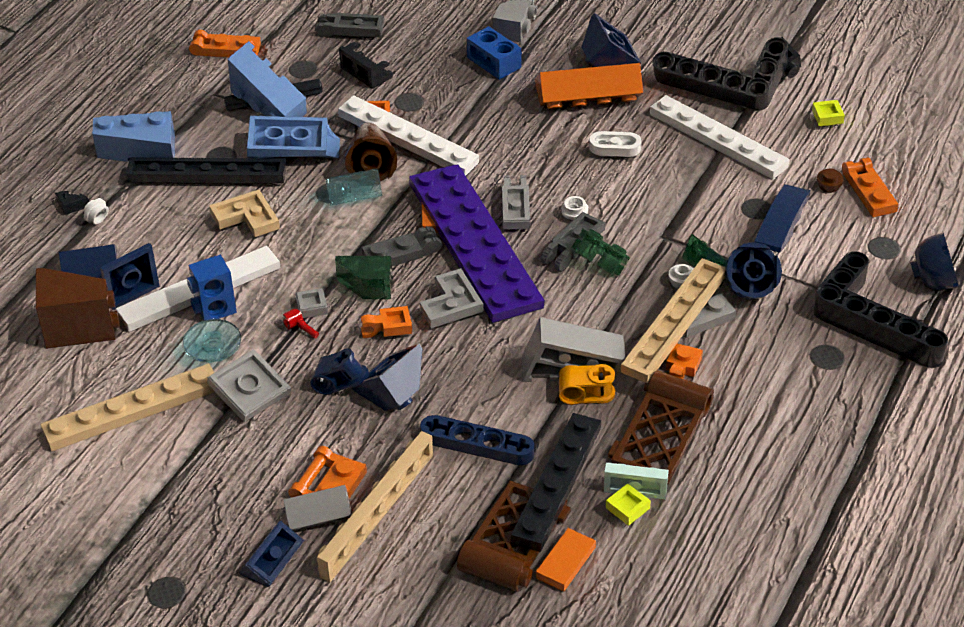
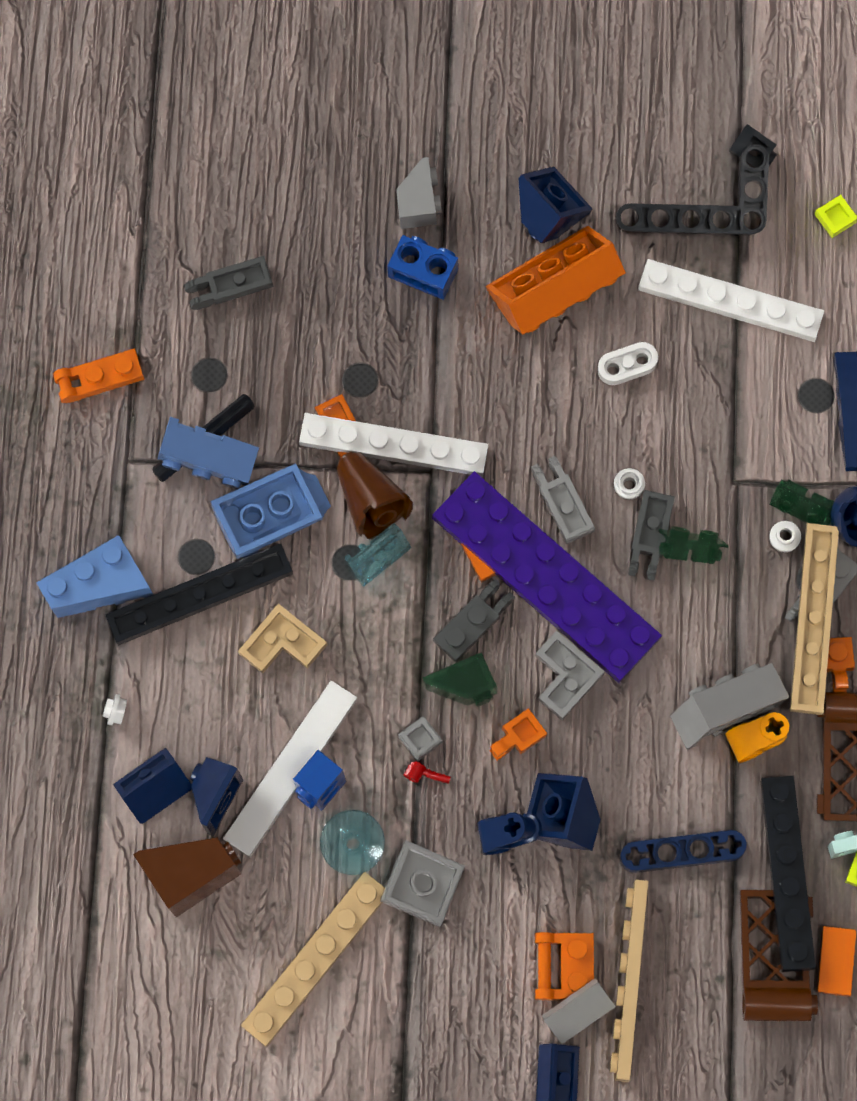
camera: 20 degrees left, 30 degrees up
(71, 202) = (73, 701): black tile -> none
(363, 67) = (283, 348): black hinge -> none

